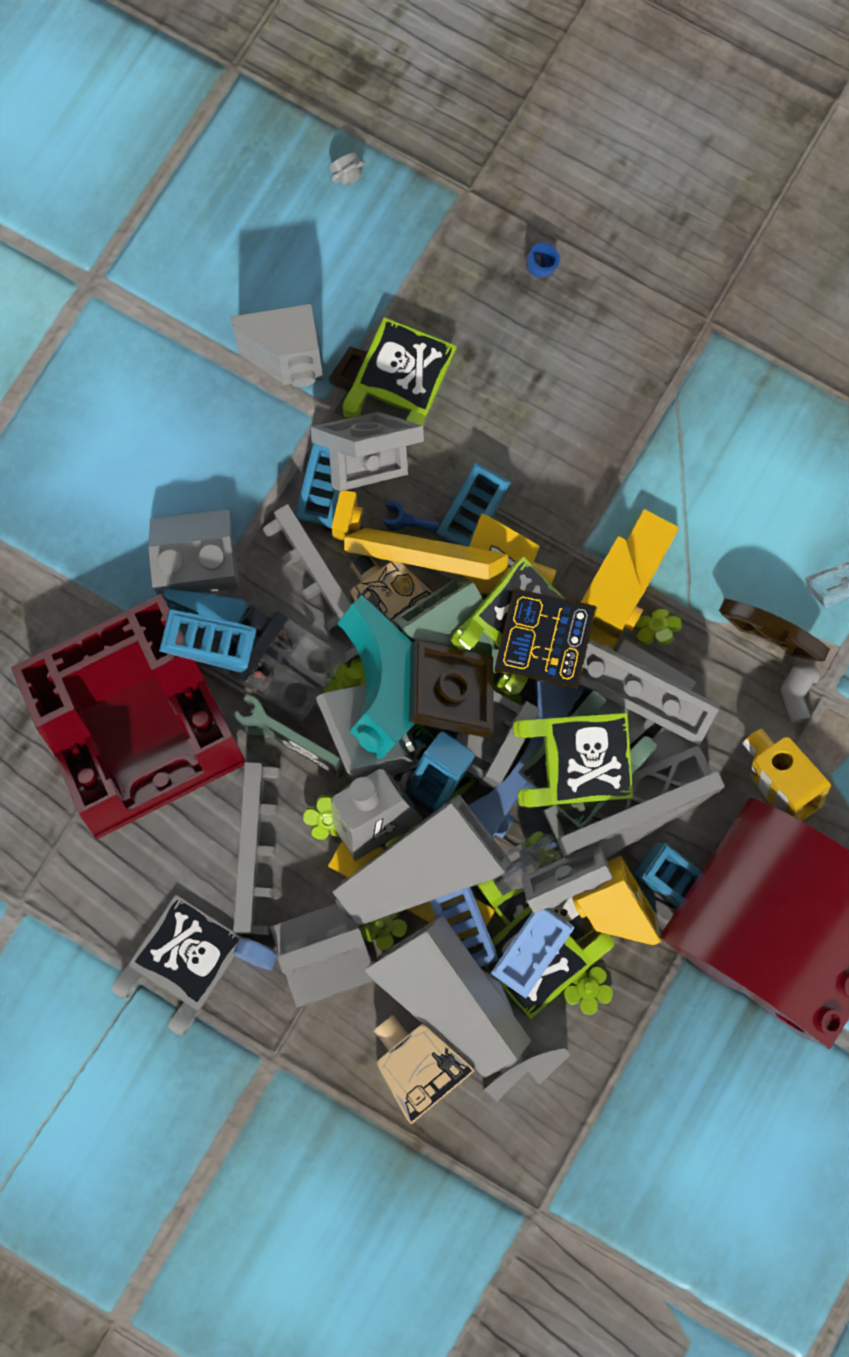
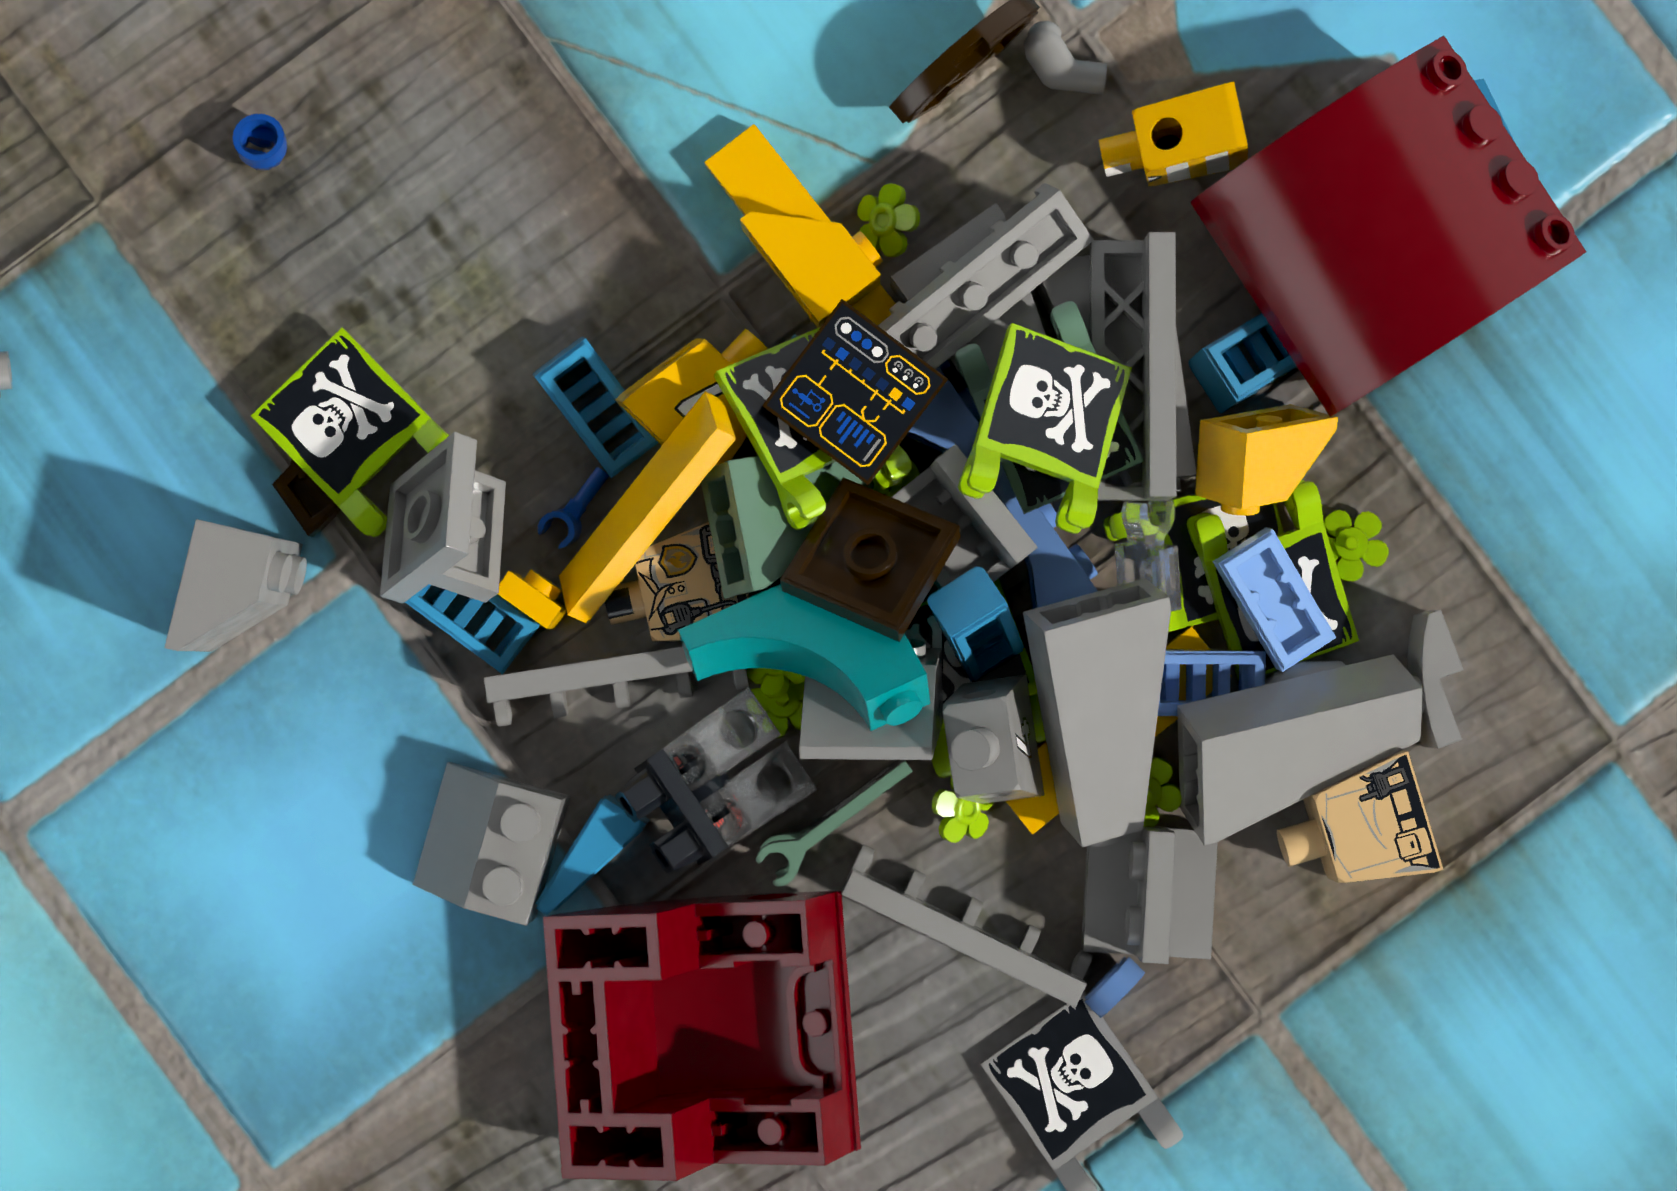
camera: 60 degrees left, 10 degrees up
(211, 625) = (687, 834): dark azure slope -> none
(566, 878) = (1204, 512): light grey plate -> none

